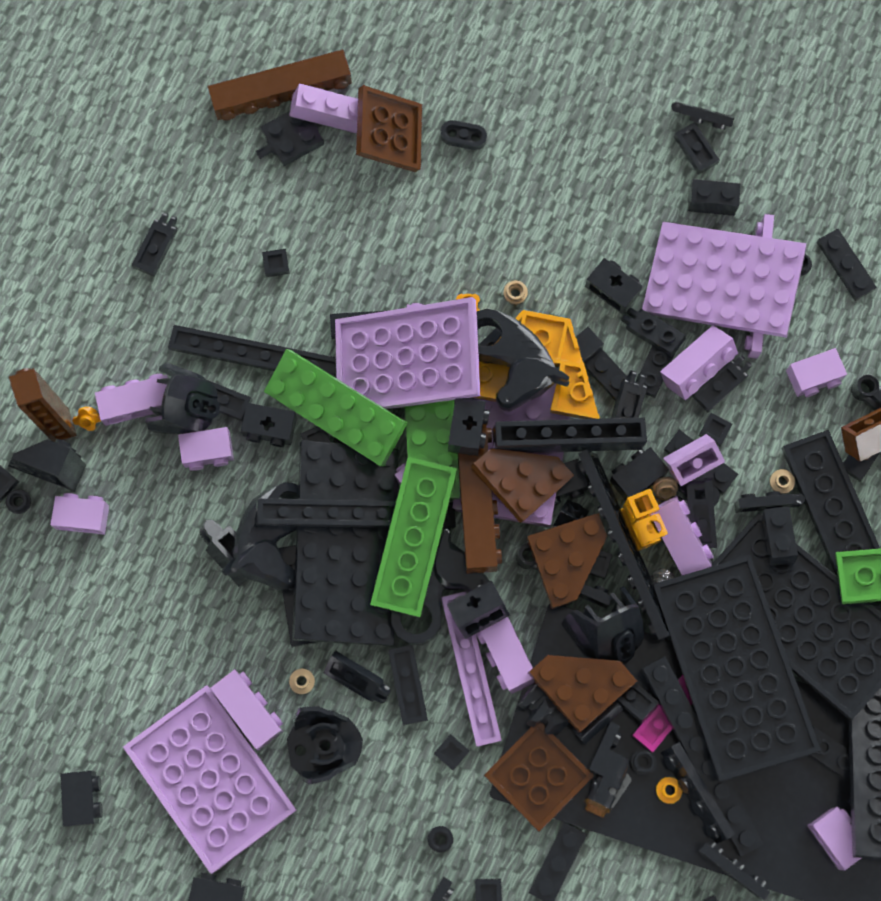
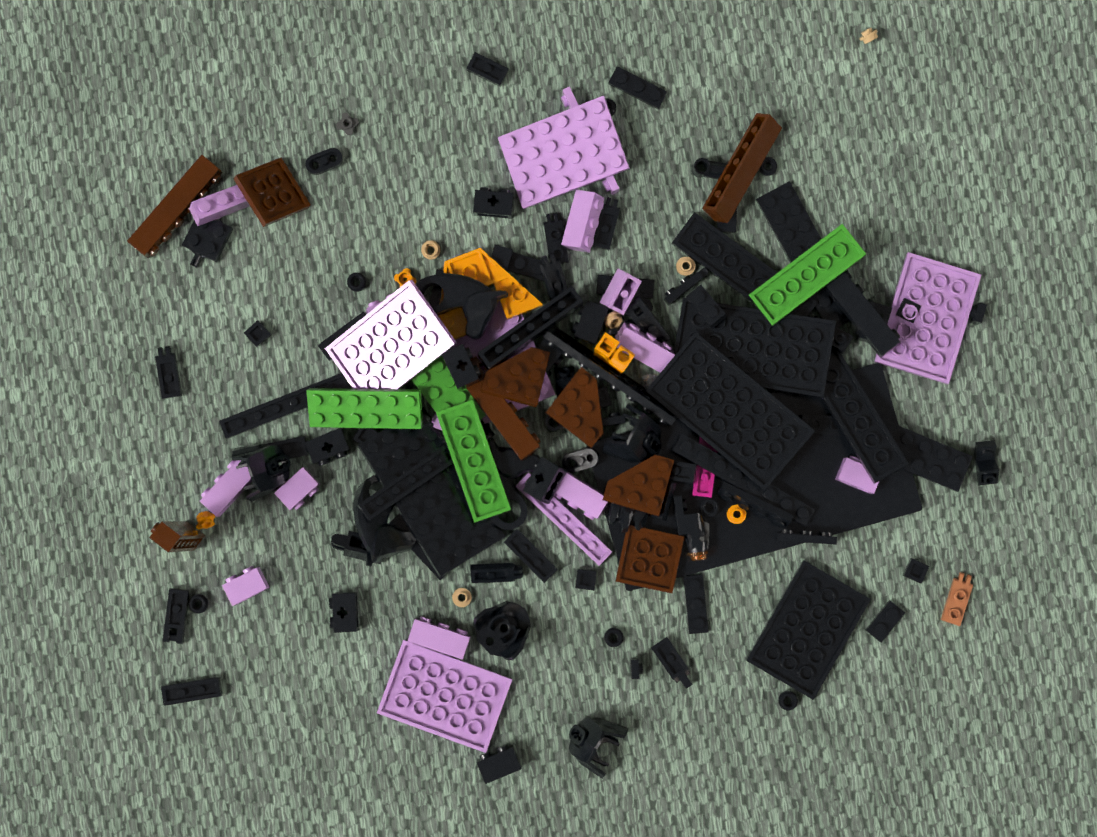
camera: 30 degrees left, 10 degrees up
(51, 462) = (208, 564): black wedge -> none
(80, 798) = (372, 761): black brick -> none
(164, 626) = (350, 603): none -> black brick
(415, 269) = (352, 277): none -> black plate
(510, 119) = (342, 124): none -> dark grey plate
(533, 616) = (582, 460): none -> black plate
(653, 331) = (539, 218): black hinge -> none
(700, 114) = (474, 43): black hinge -> none
(713, 197) = (521, 98): black brick -> none
(716, 428) = (621, 259): black plate -> none
(816, 372) = (663, 178): lavender brick -> none

